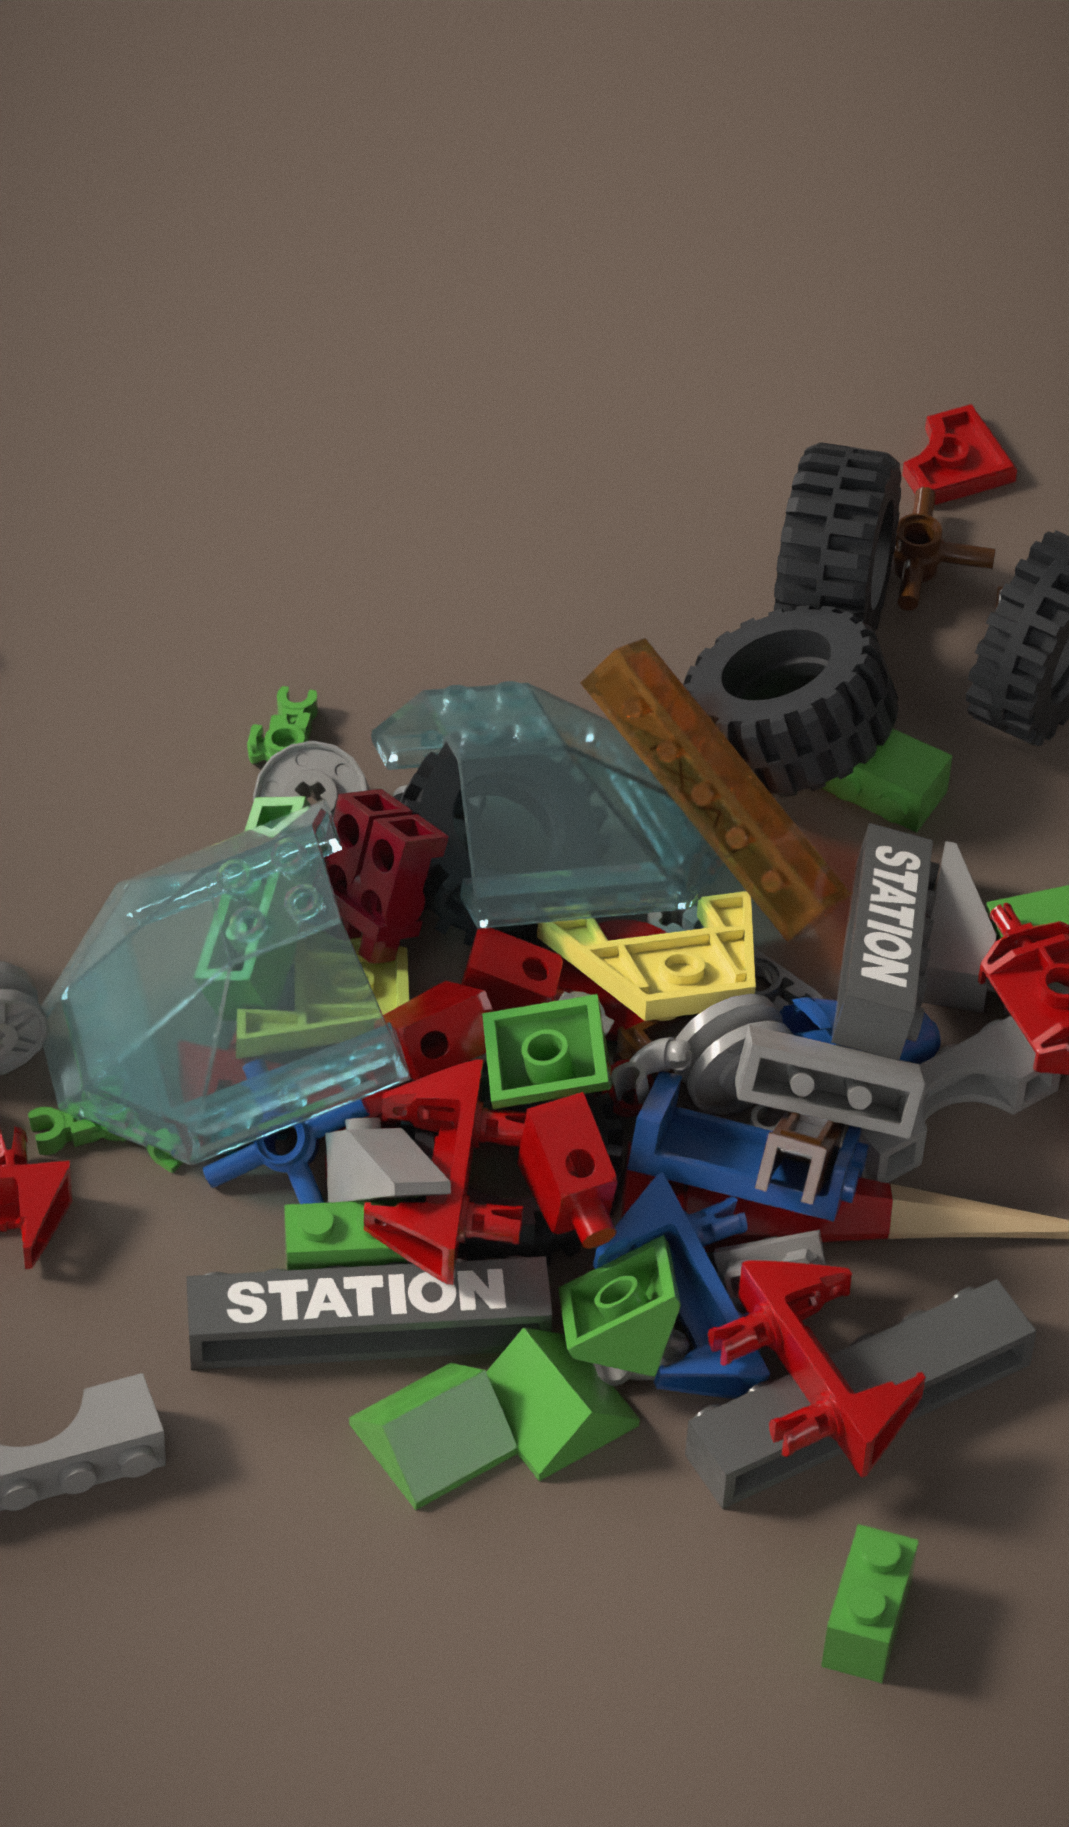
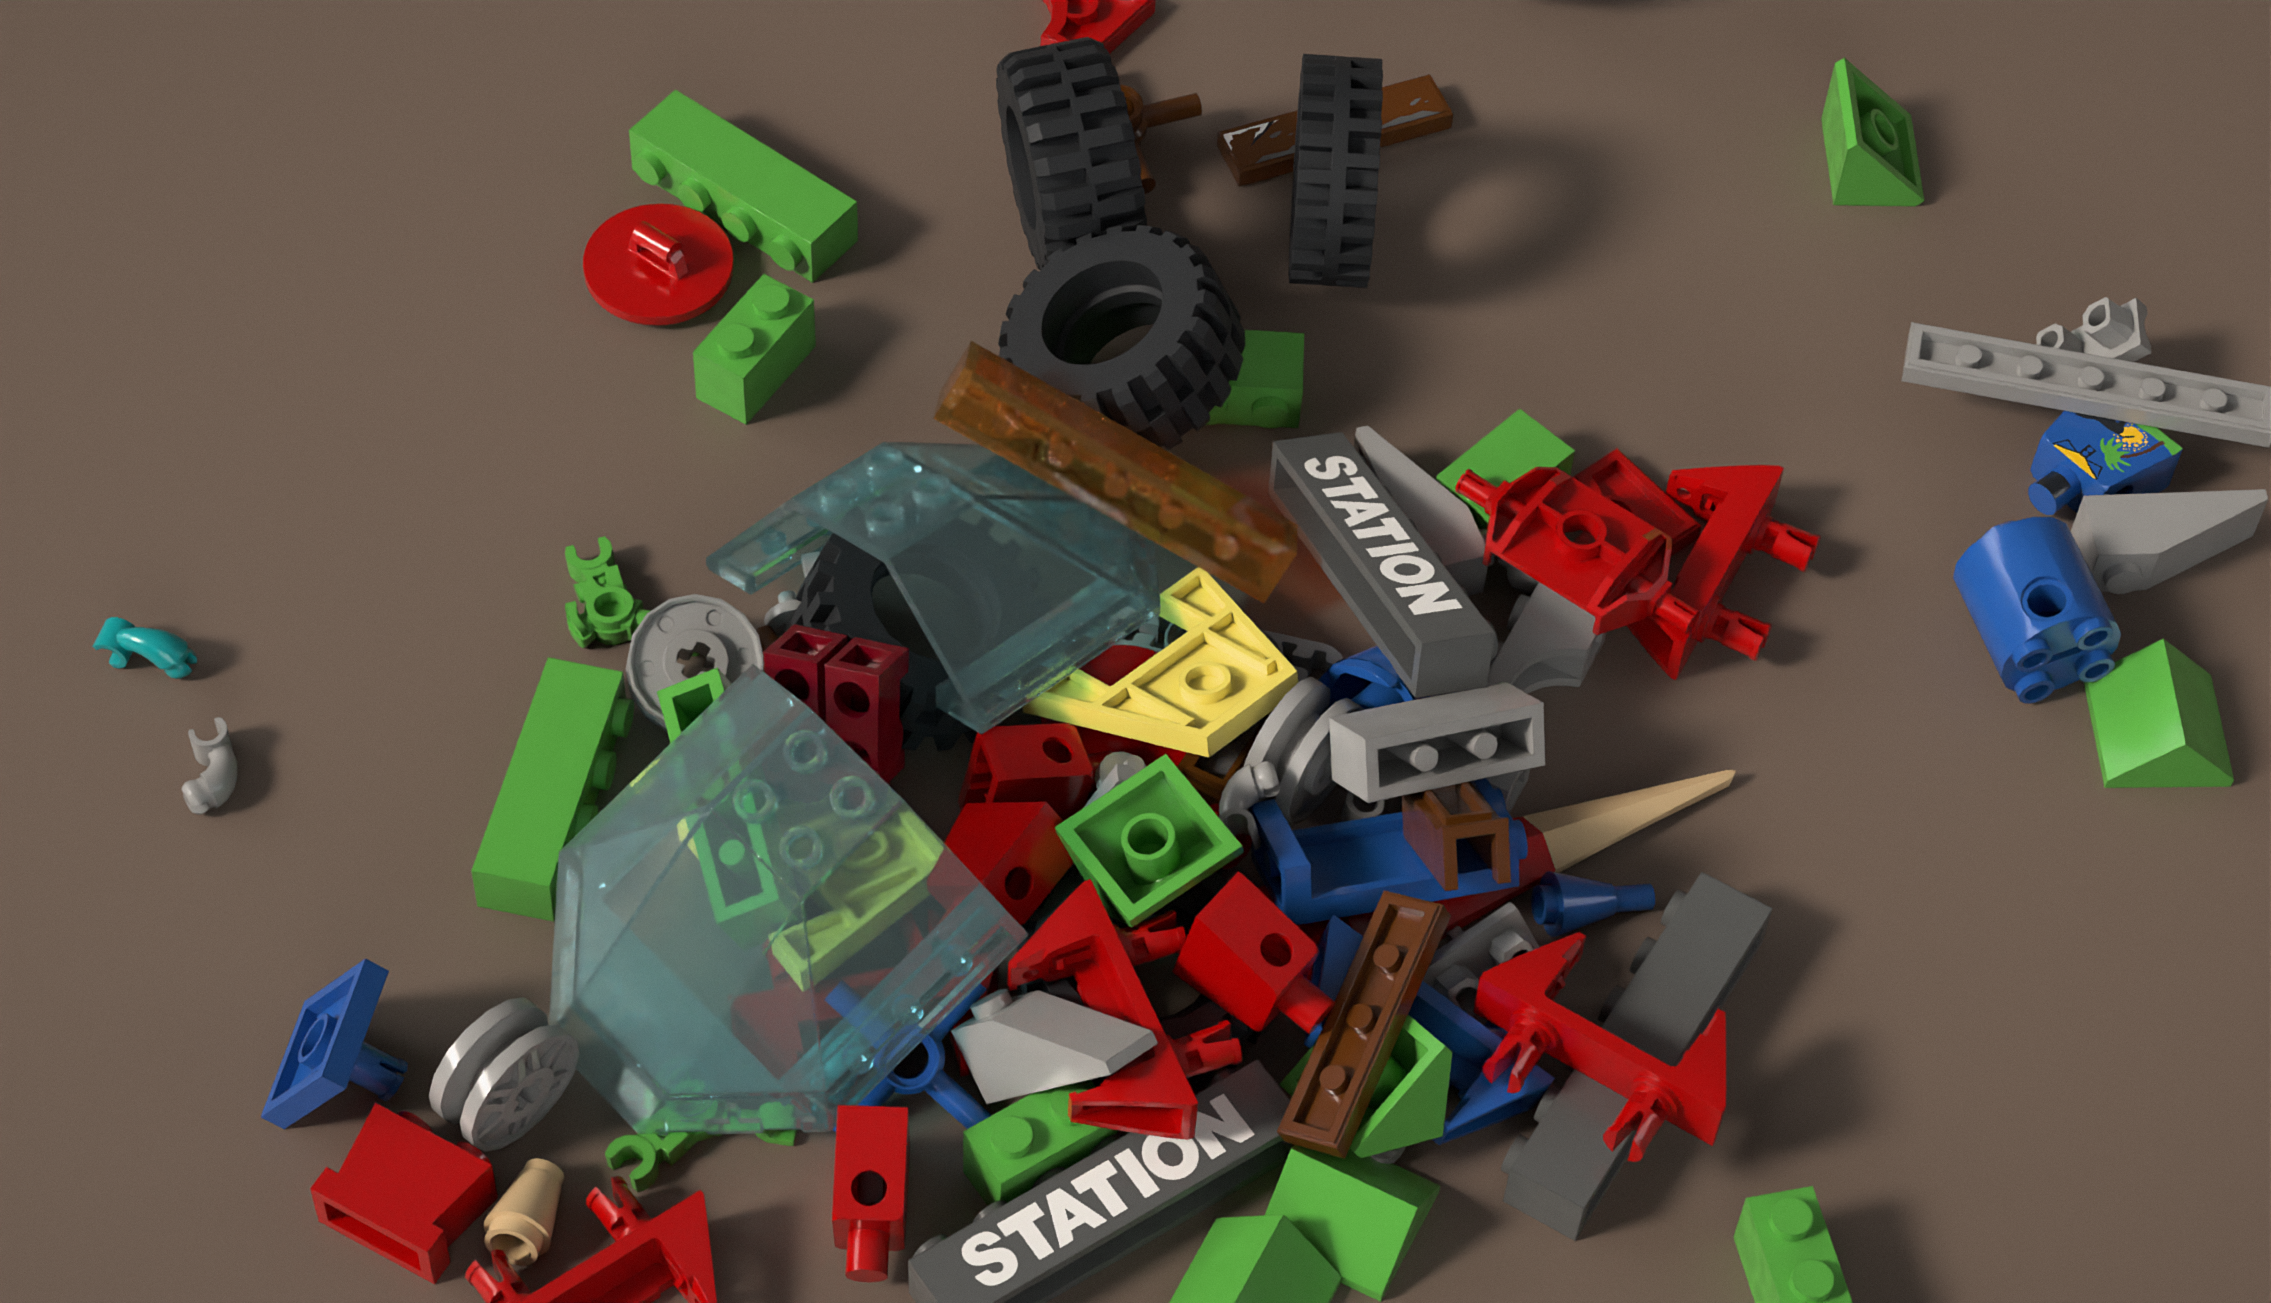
camera: 30 degrees left, 5 degrees up
(185, 815) = (551, 785): none -> bright green brick
(197, 1214) = (870, 1187): none -> red torso
(489, 515) = (658, 264): none -> red shield
(516, 601) = (754, 349): none -> bright green brick
(589, 483) = (743, 186): none -> bright green brick
(632, 1258) = (1364, 1024): none -> reddish brown tile
(890, 1264) = (1573, 902): none -> blue cone

